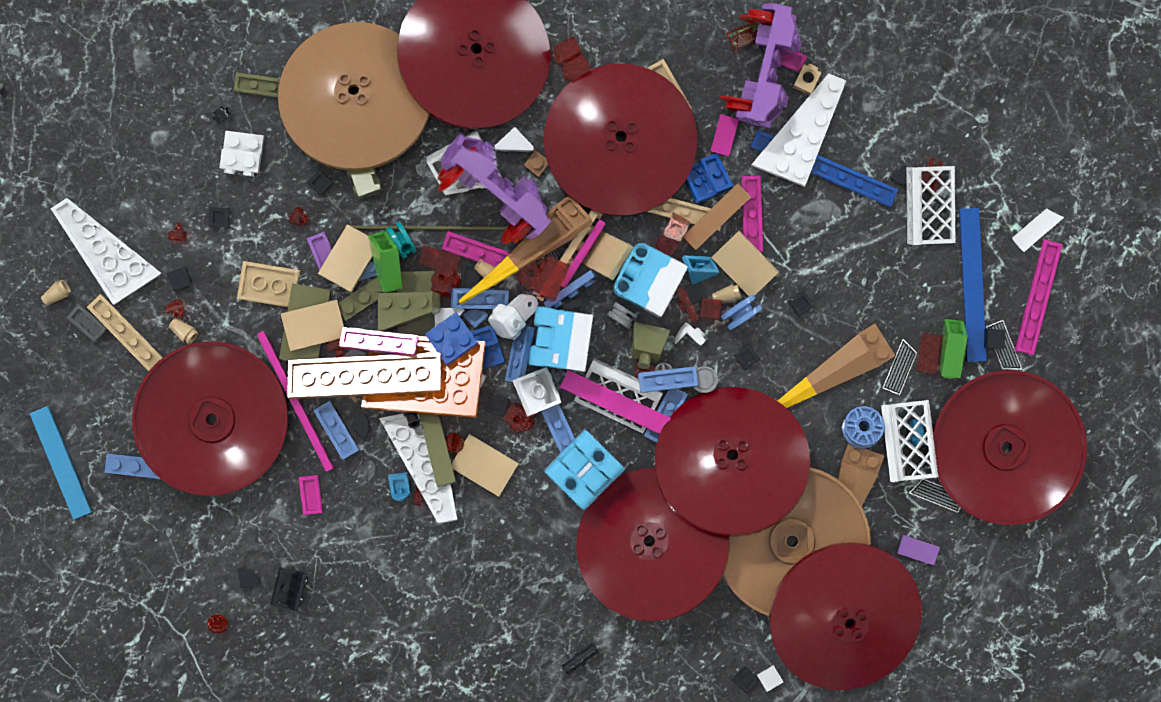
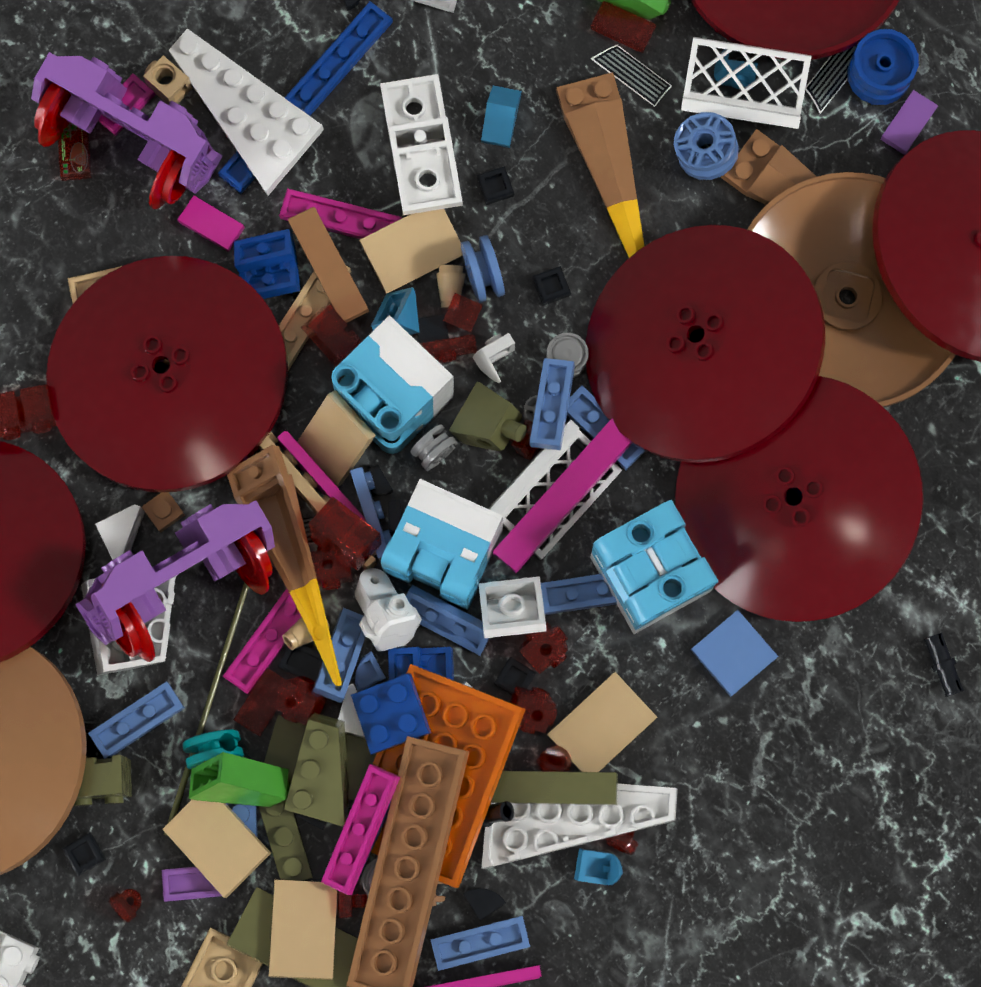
camera: 75 degrees left, 10 degrees down
(406, 188) = (136, 720): none -> medium blue plate
(483, 423) = (539, 709): none -> clear red brick
(550, 531) = (734, 653): none -> medium blue tile
(810, 250) = (421, 144): none -> white bracket
(847, 293) = (500, 116): none -> dark azure slope
(936, 519) = (882, 67): none -> blue wheel

